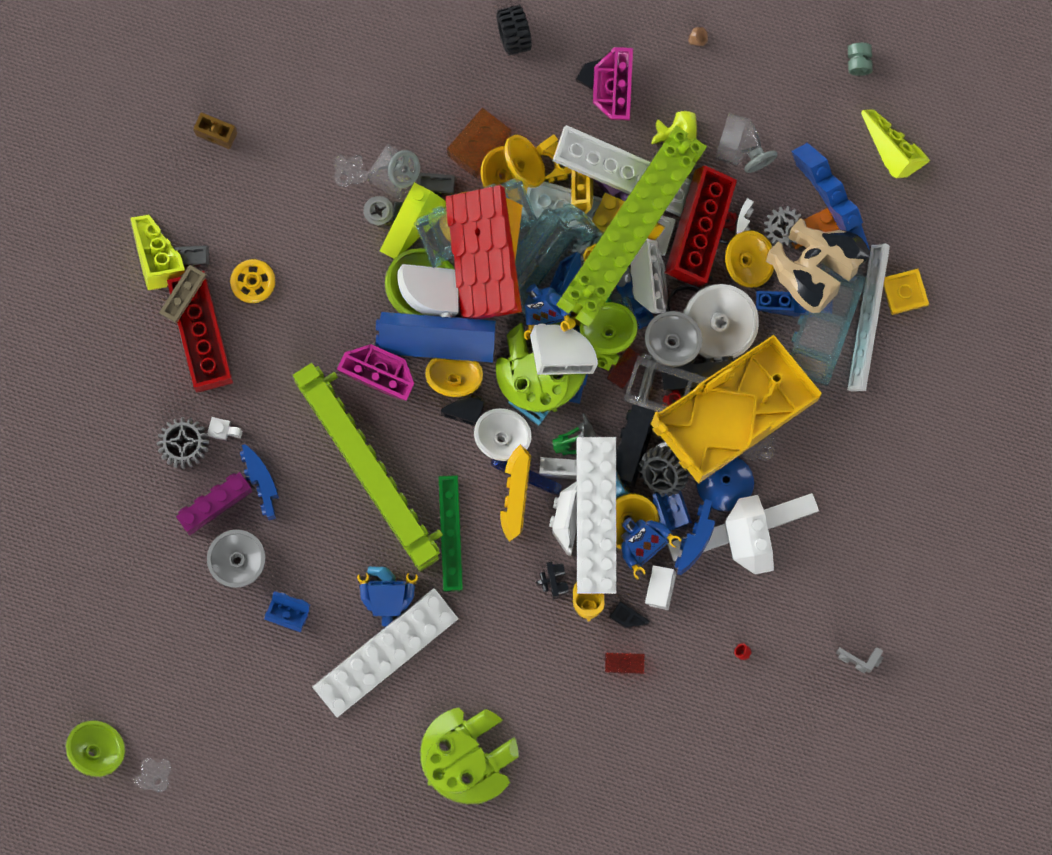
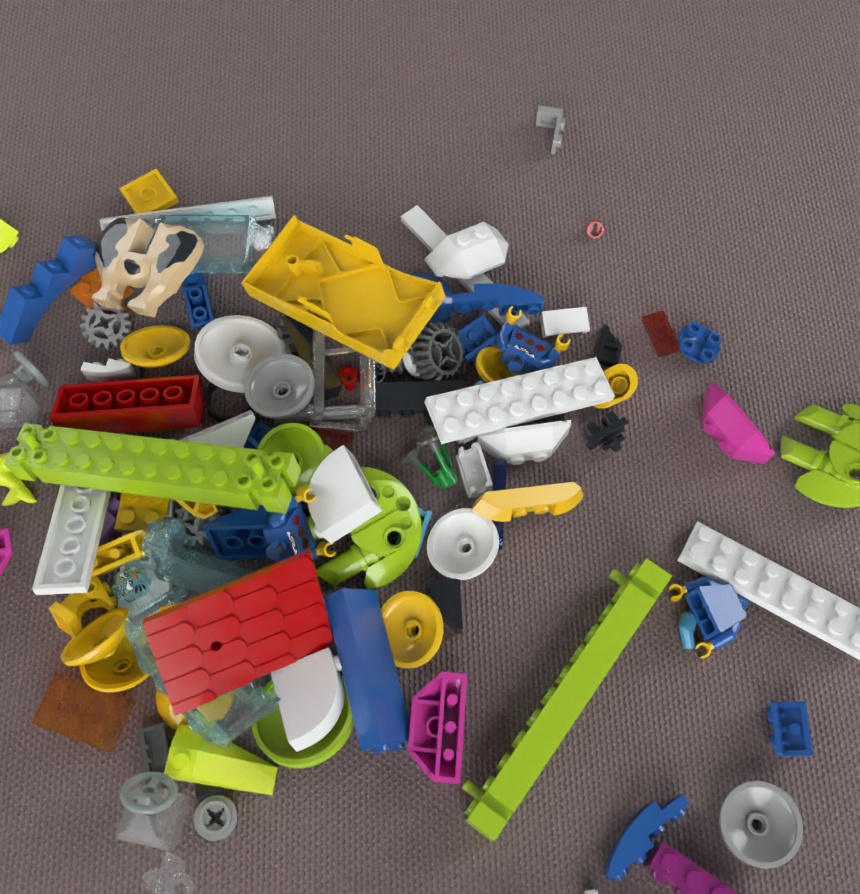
camera: 110 degrees left, 10 degrees down
(451, 533) = (601, 565): green plate -> none
(522, 678) = (733, 428): none -> dark pink wedge
(557, 194) = (131, 584): none -> clear light blue head
(604, 690) = (699, 343): none -> blue dish

